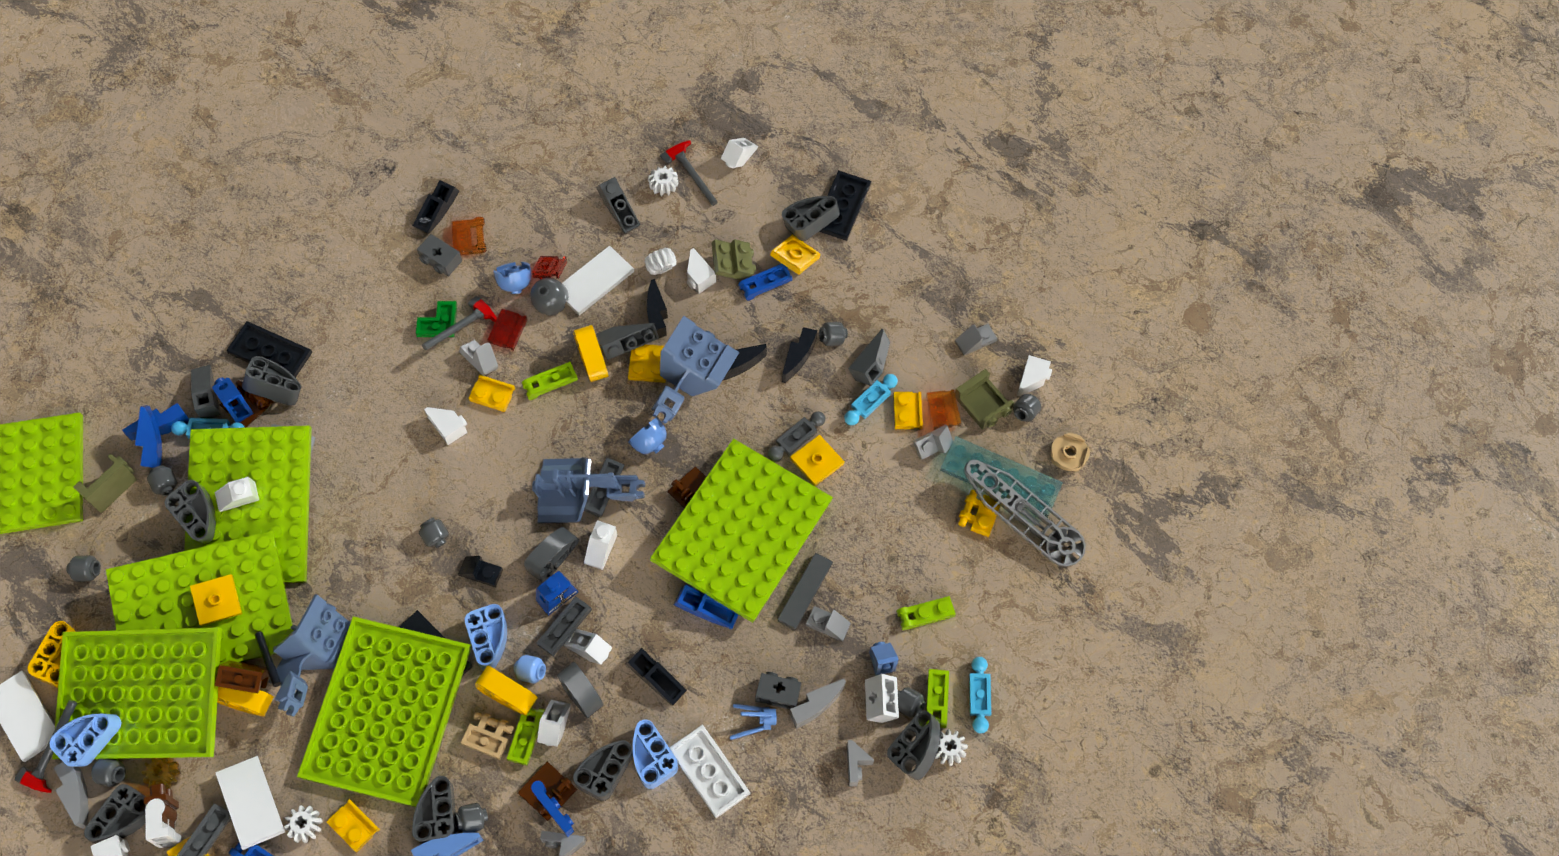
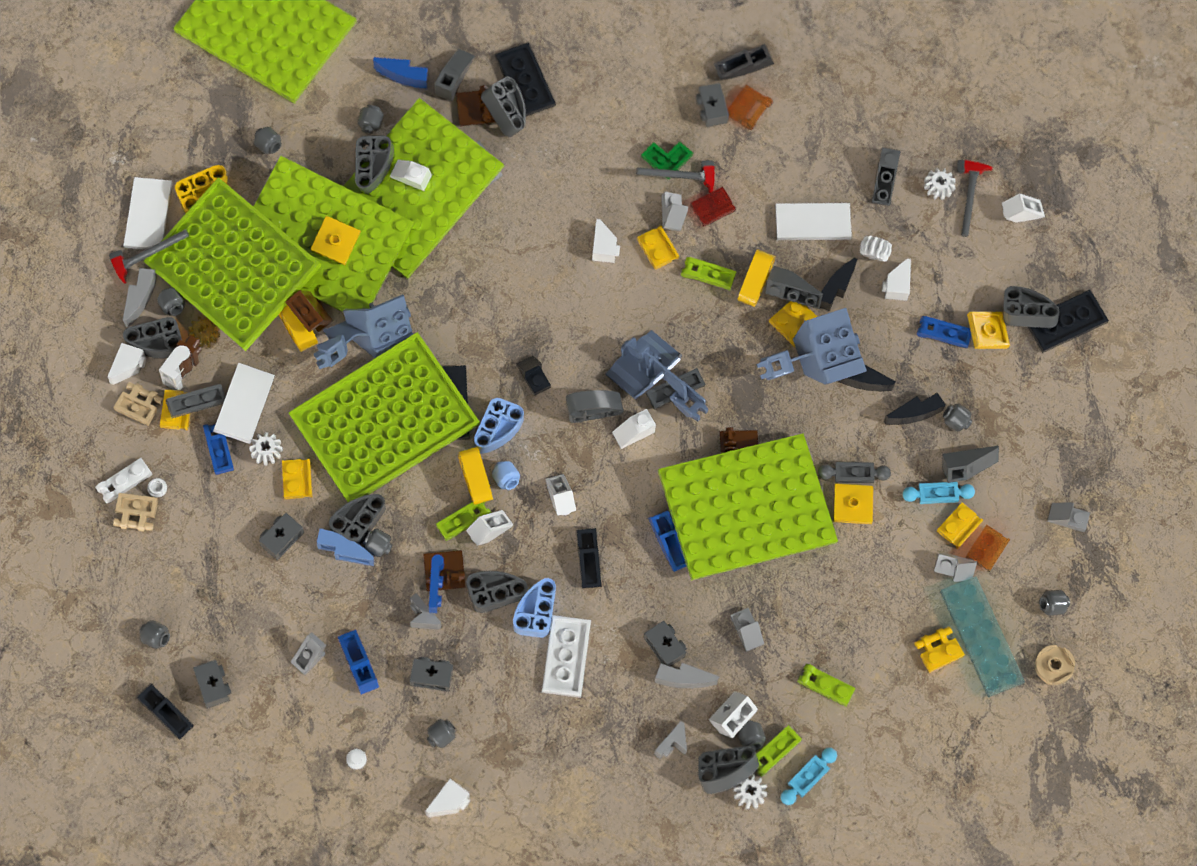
camera: 40 degrees right, 5 degrees up
(78, 733) = (172, 259): light blue beam -> none
(108, 485) = (332, 93): olive panel -> none
(149, 438) = (386, 79): blue slope -> none
(180, 427) = (432, 100): medium azure plate -> none
(228, 392) = (467, 91): blue torso -> none
(267, 659) = (335, 313): black bar -> none
(433, 532) = (524, 318): dark grey head -> none
(485, 741) = (432, 499): tan plate -> none
(513, 277) = (752, 168): medium blue cylinder -> none
(549, 266) = (786, 182): clear red plate -> none
(549, 296) = (766, 206): dark grey cylinder -> none
(555, 592) = (572, 435): blue torso -> none
(564, 626) = (557, 466): dark grey plate -> none
(580, 689) = (526, 520): dark grey beam -> none
(649, 438) = (741, 380): medium blue cylinder -> none
(733, 259) = (934, 293): olive plate -> none
(766, 717) = (640, 654): medium blue plant -> none
(805, 591) = (752, 591): dark grey tile -> none
(883, 658) = (762, 688): medium blue slope -> none
(983, 400) = (1026, 568): olive panel -> none
(1014, 505) = (969, 665): light grey beam -> none
(1034, 375) = (1085, 583): white slope -> none

